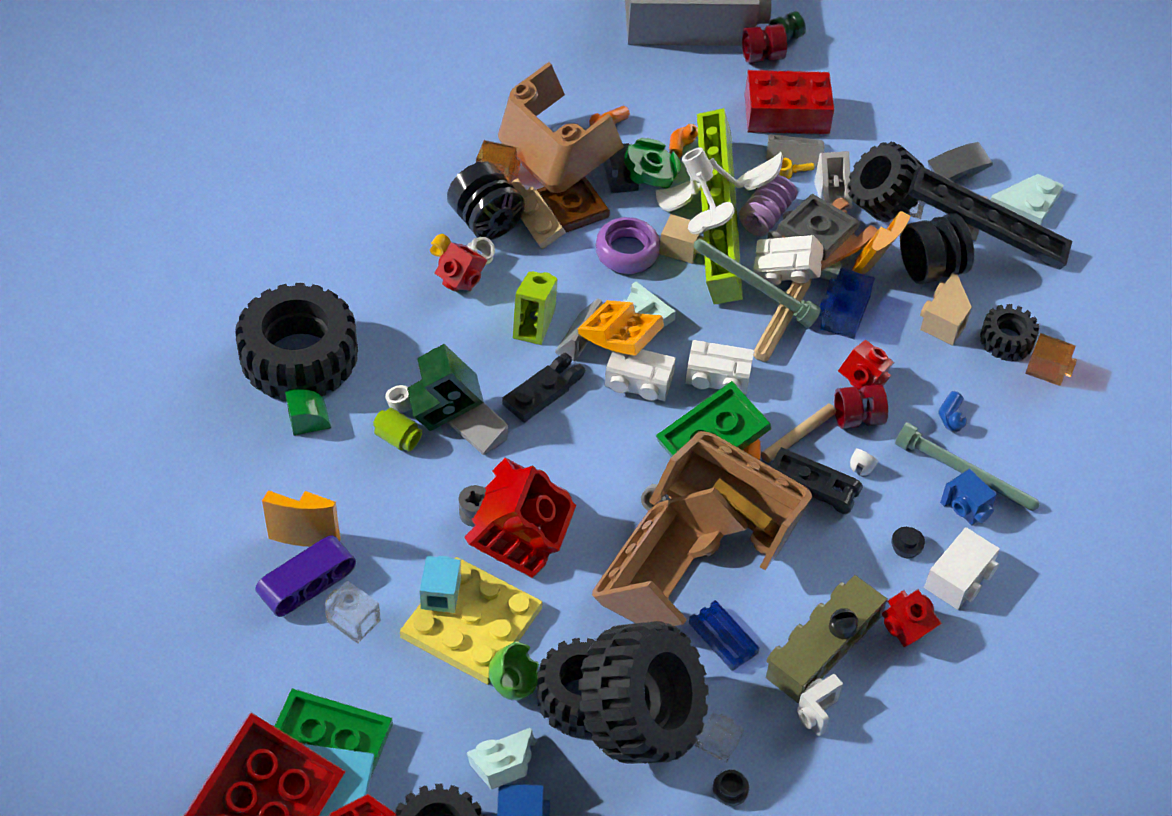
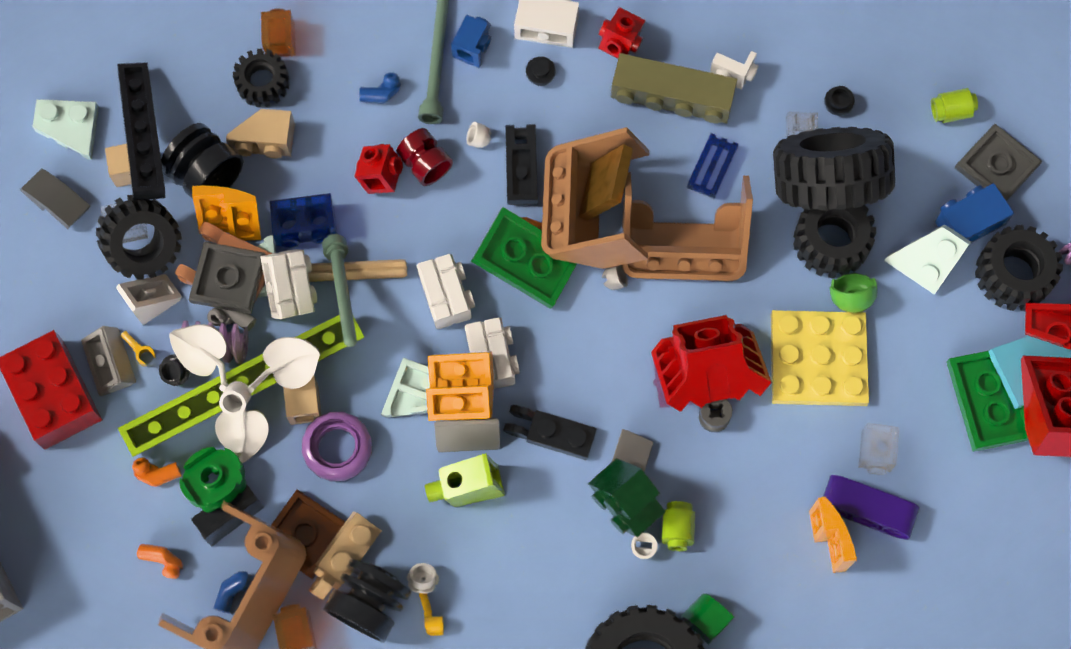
camera: 115 degrees left, 20 degrees up
(440, 584) = (821, 383): medium azure brick -> none
(460, 267) = (462, 578): red brick -> none
(798, 432) = (469, 198): tan bar -> none
(846, 626) = (663, 73): black hinge -> none

